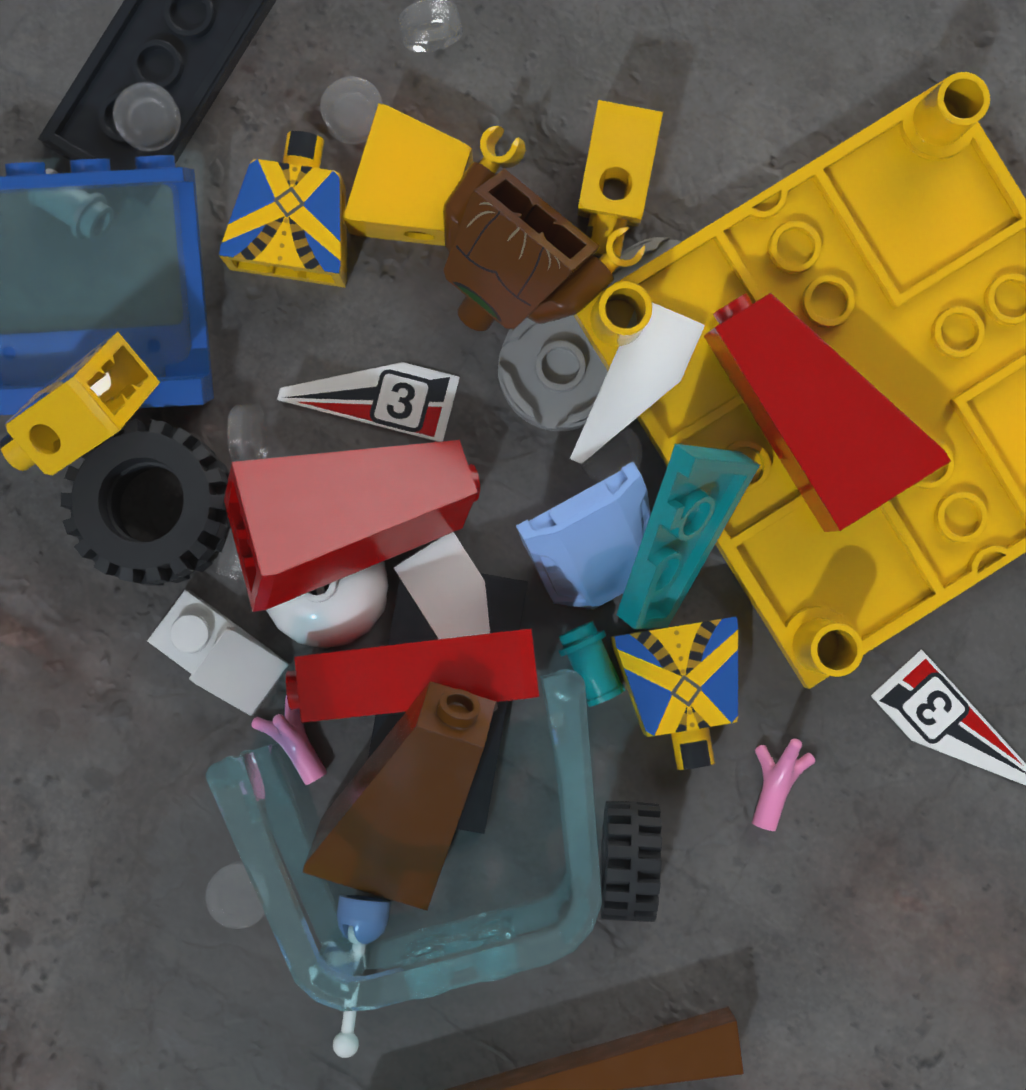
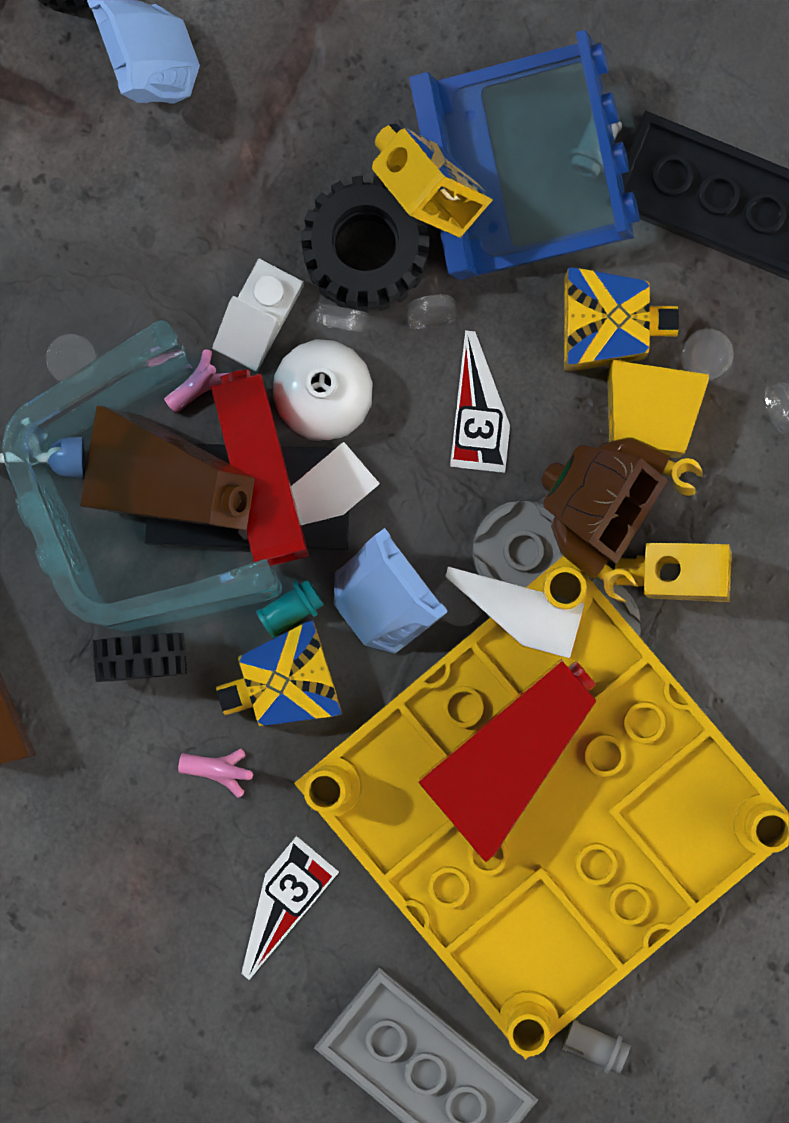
camera: 80 degrees right, 0 degrees up
(146, 116) = (673, 193): clear tile -> none
(341, 511) = (377, 394): slope -> none
(684, 525) = (402, 660): teal wing -> none

